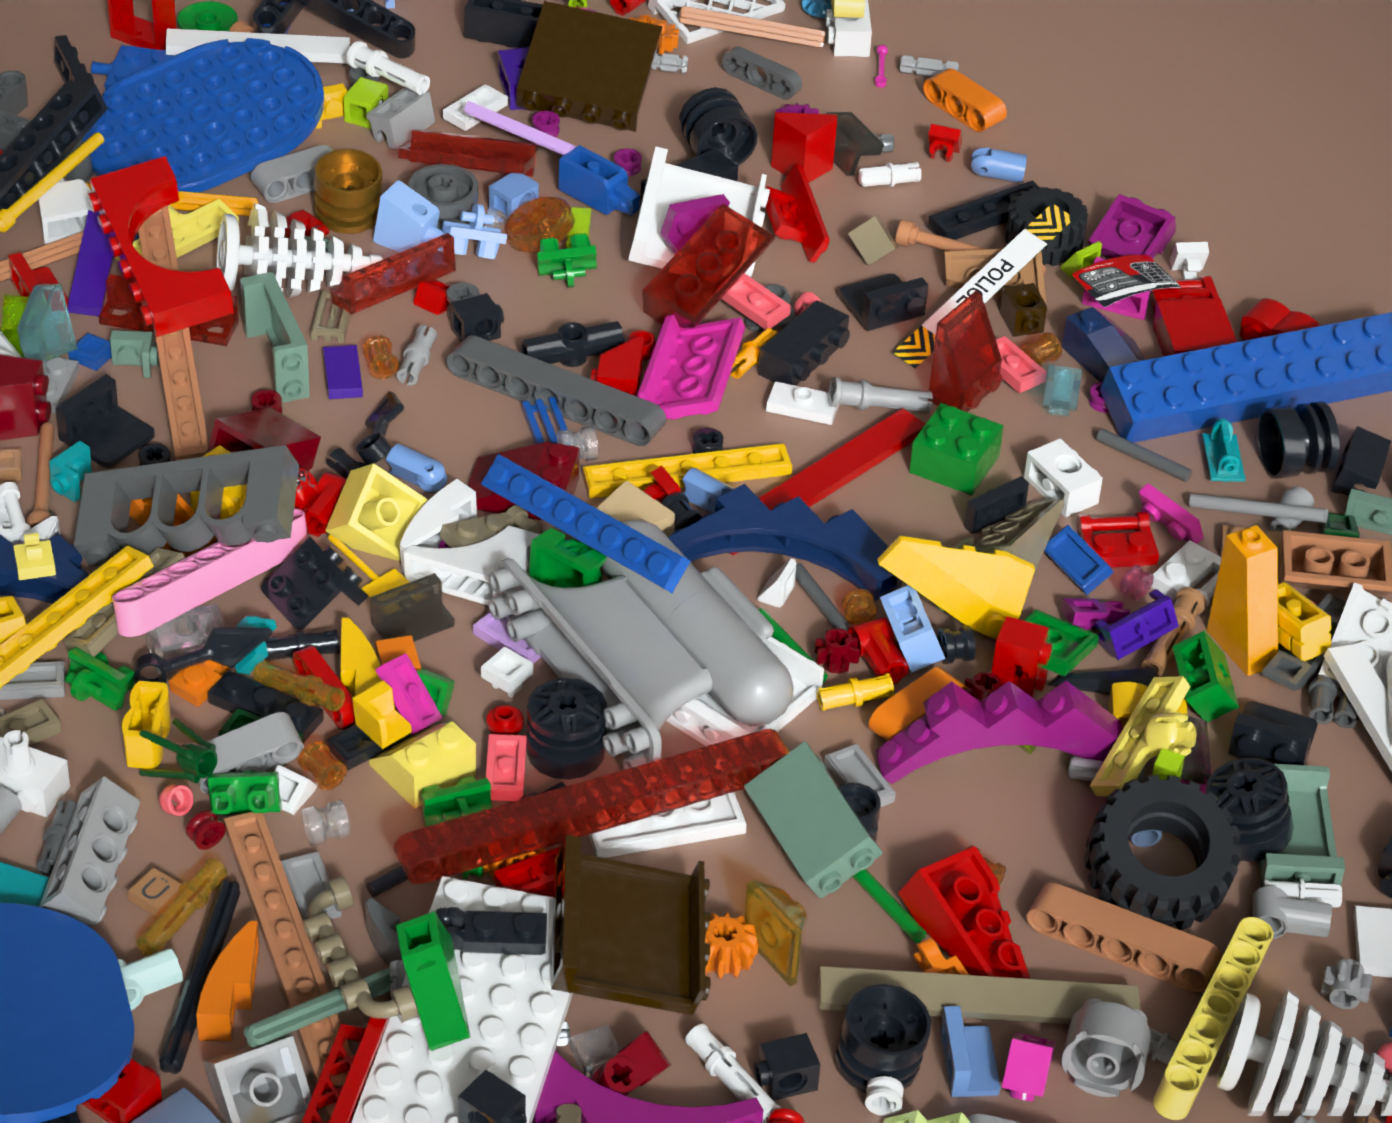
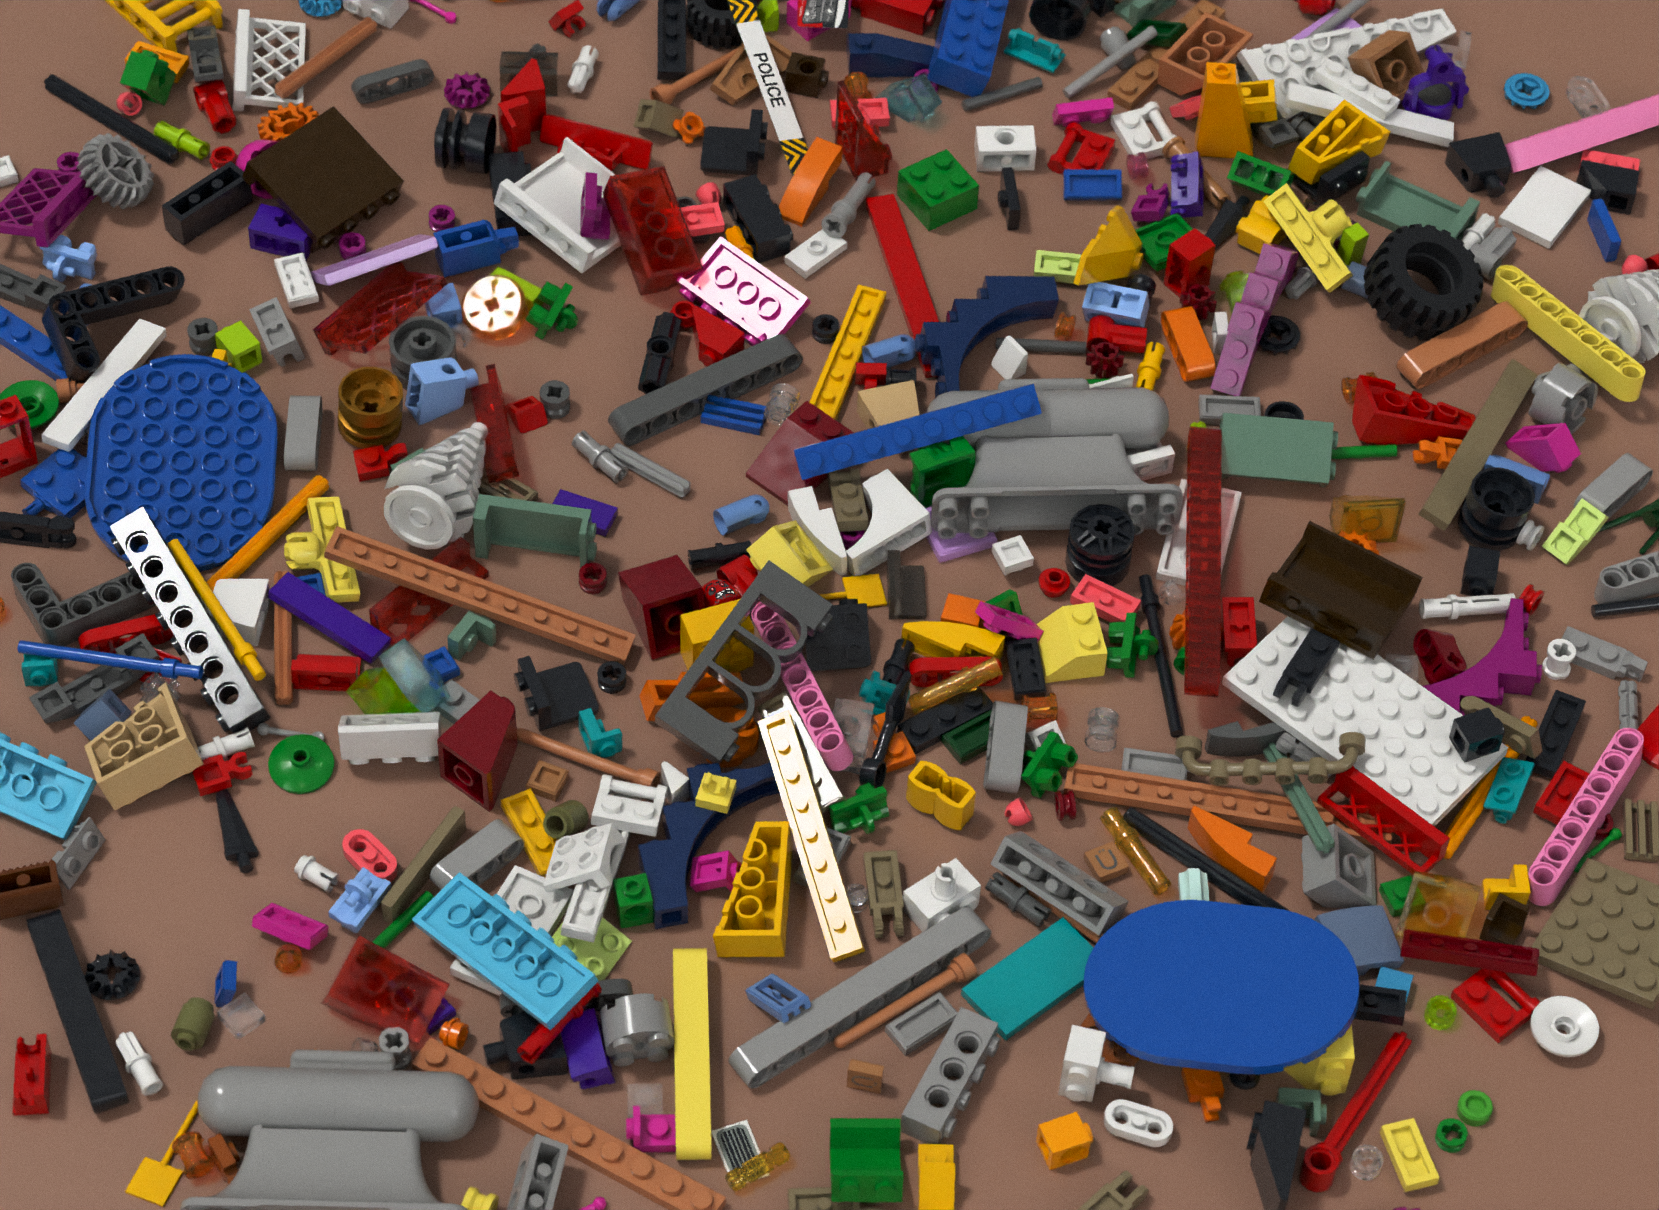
camera: 60 degrees left, 10 degrees up
(168, 297) = (457, 578): red arch -> none
(195, 758) = (1010, 776): dark green plant -> none
(376, 445) = (660, 507): black piece -> none
(377, 716) = (1026, 650): yellow panel -> none
(378, 64) = (215, 313): white pin -> none
(378, 361) = (577, 482): clear orange bush -> none
(428, 394) = (651, 470): none -> light grey axle
(434, 979) = (1344, 713): green slope -> none
(476, 317) = (585, 400): black brick -> none
(487, 237) = (484, 350): light blue hips -> none
(761, 150) = (514, 123): none -> red panel
(880, 255) = (696, 124): none -> orange plate
(886, 360) = (810, 181): none -> orange slope
(996, 765) = (1281, 327): none -> black gear
(1023, 533) = (1056, 213): dark tan wedge -> none
(1259, 804) = (1402, 205): black wheel -> none
(1312, 705) = (1336, 140): none -> yellow wedge
(1346, 984) = (1567, 256): light grey gear -> none

